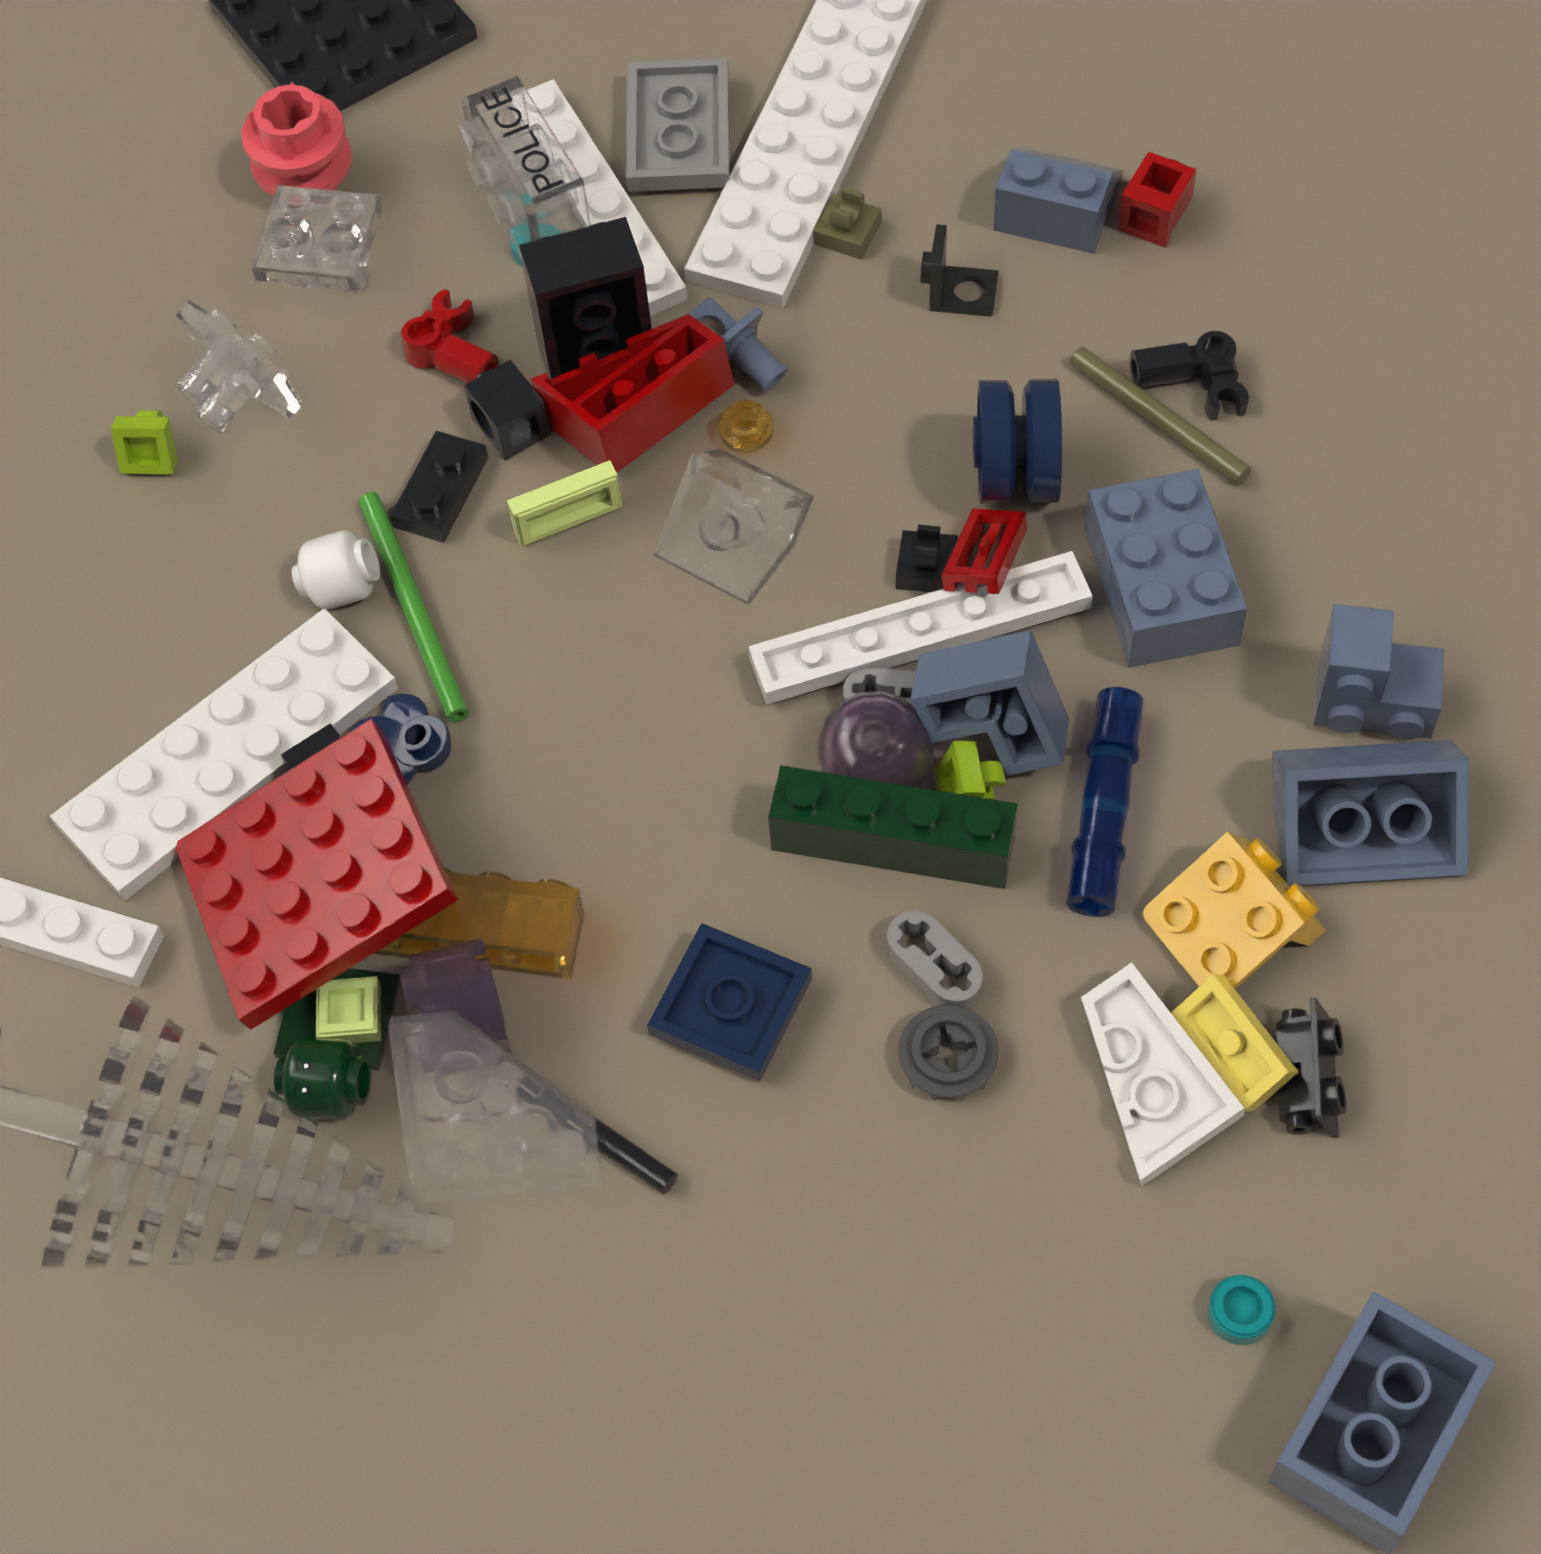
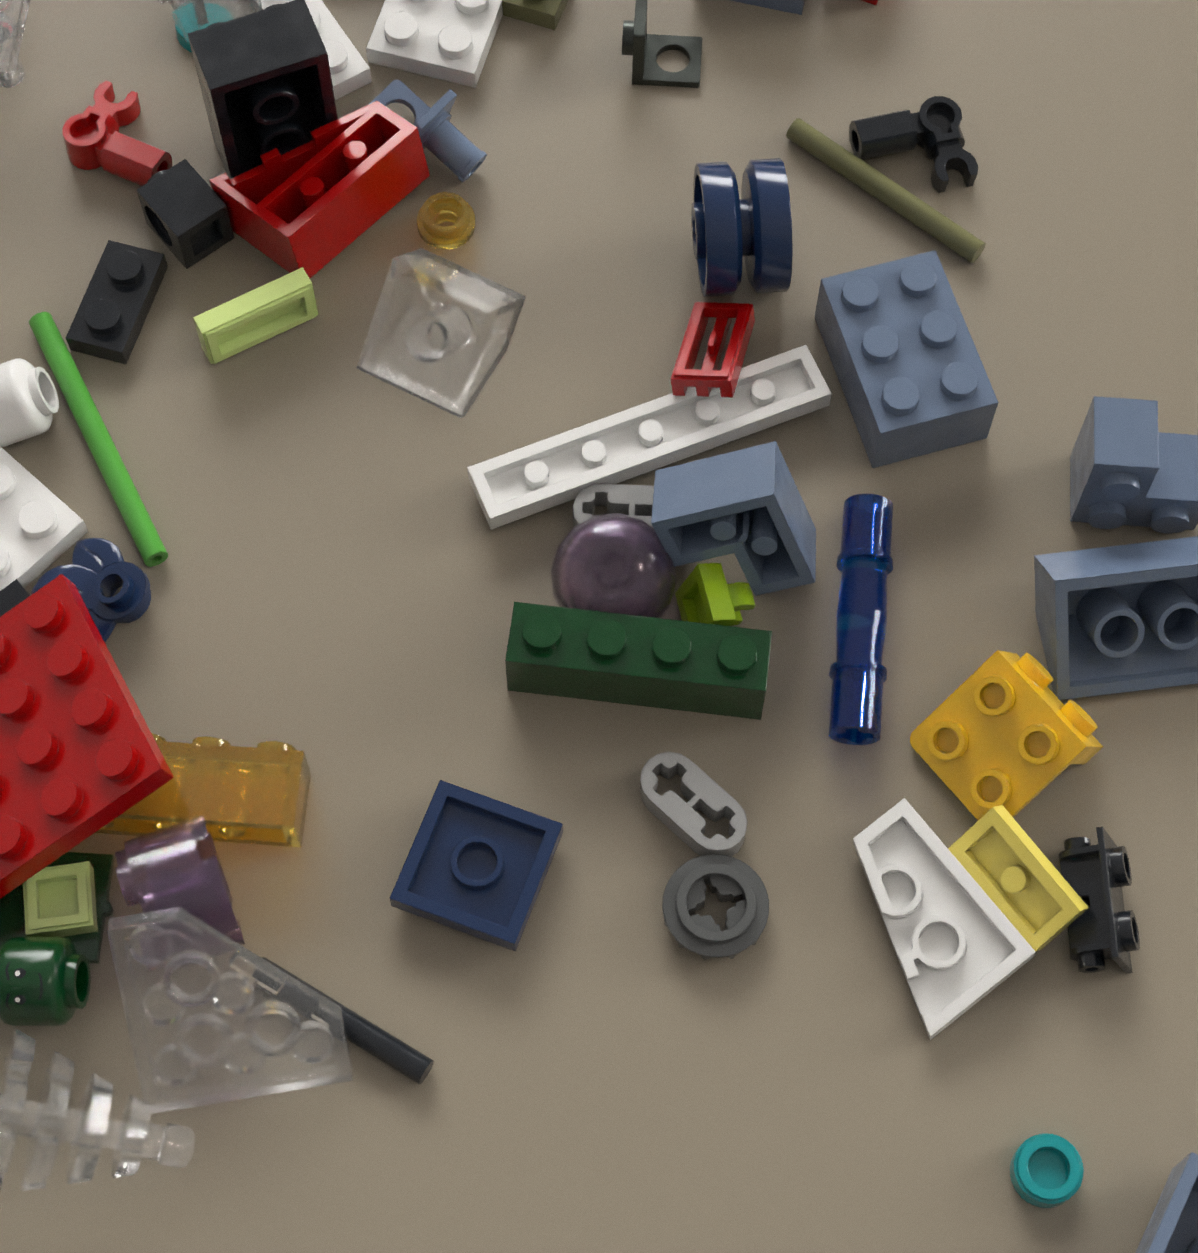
camera: 10 degrees left, 5 degrees up
(923, 558) = (648, 360): black tile -> none

